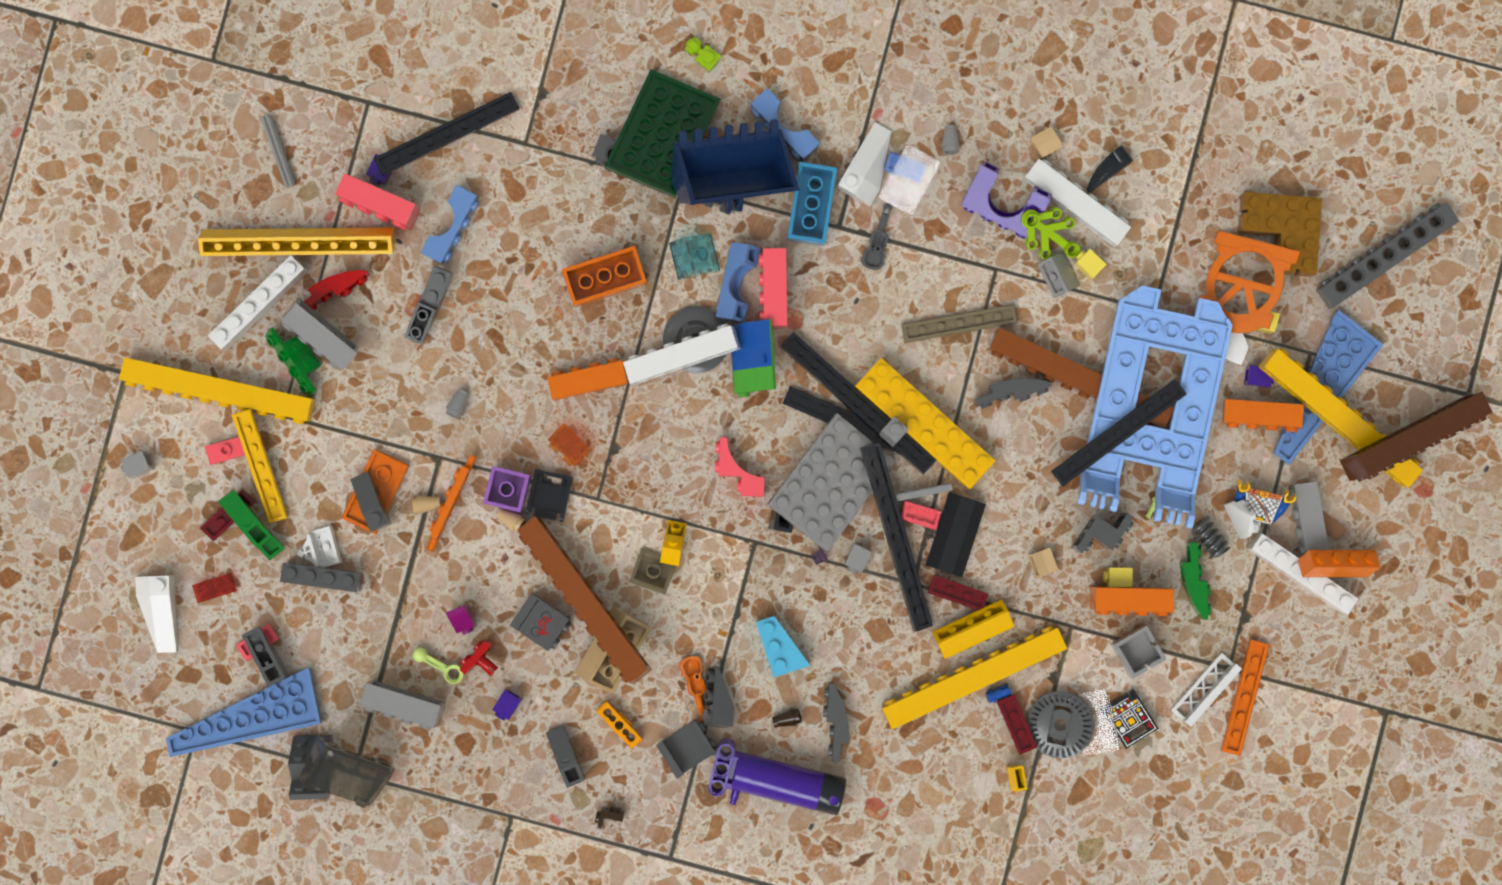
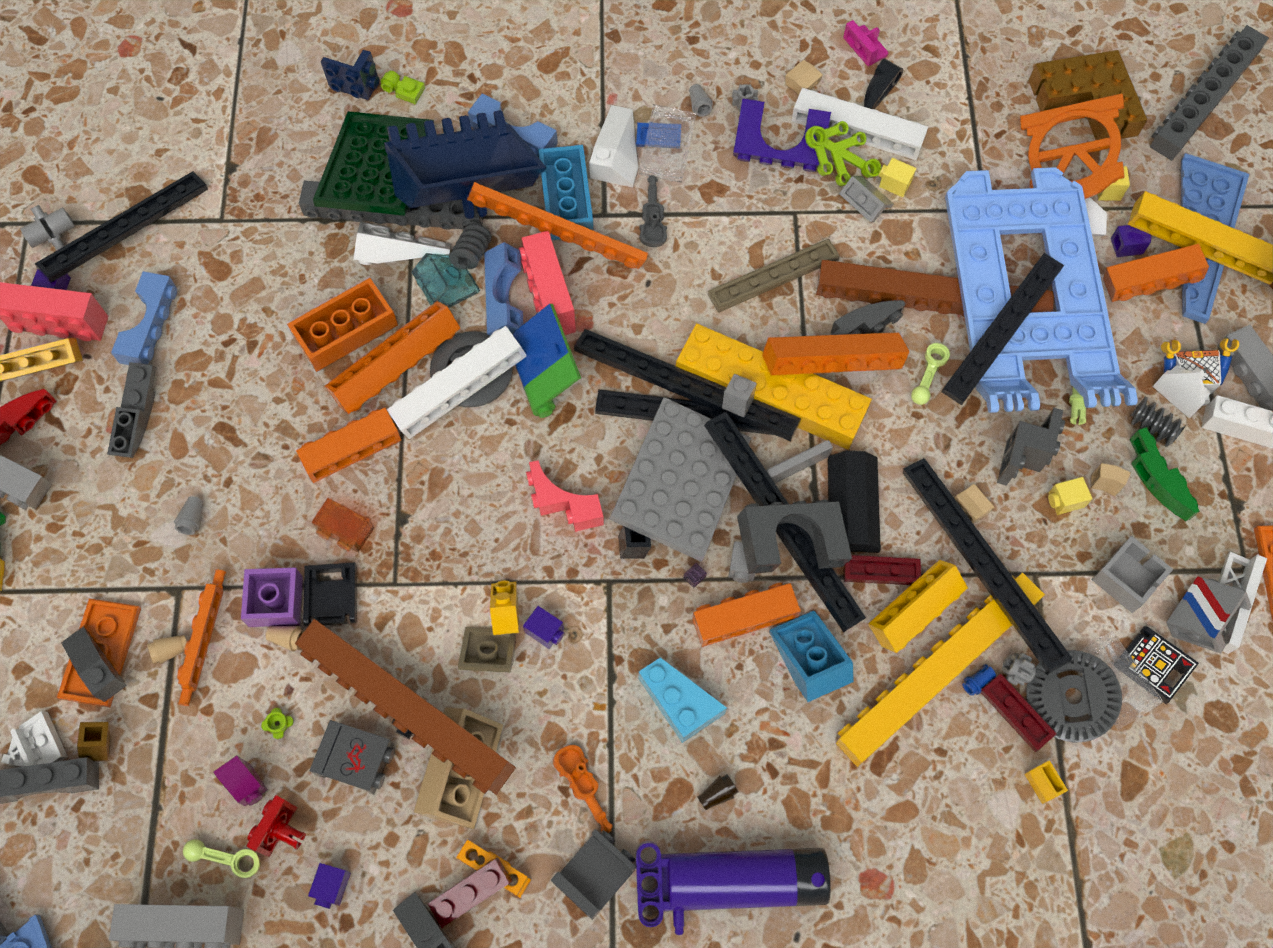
camera: 15 degrees left, 20 degrees down
(364, 560) = (94, 740): none -> pearl gold brick
(385, 118) = (47, 227): none -> light grey pin
(492, 586) = (269, 723): none -> lime plate
(600, 737) = (469, 892): none -> plate
(637, 316) = (393, 357): none -> orange brick
(655, 211) = (379, 245): none -> white wedge
(672, 43) = (354, 80): none -> dark blue bracket
(698, 567) = (544, 627): none -> dark purple brick
(718, 704) = (620, 798): dark grey slope -> none
(721, 233) = (470, 246): none -> dark grey piece
(787, 242) = (566, 230): none -> orange plate
(835, 713) = (781, 766): dark grey slope -> none
(846, 598) = (745, 614): none -> orange brick
(884, 641) = (812, 656): none -> dark azure slope
(920, 515) = (802, 489): coral plate -> none
(923, 550) = (819, 519): none -> dark grey arch
(980, 416) = (835, 353): none -> orange brick
(989, 143) = (744, 91): none -> light grey gear
(1028, 695) = (1019, 669): none -> light grey gear
(1031, 613) = (987, 566): none -> black plate
(1038, 461) = (921, 394): none -> yellowish green piece
(1113, 120) = (865, 42): none -> dark pink panel
(1131, 599) = (1098, 513): orange brick -> none
(1155, 573) = (1109, 478): none -> tan piece
(1179, 694) = (1206, 612): none -> light grey panel

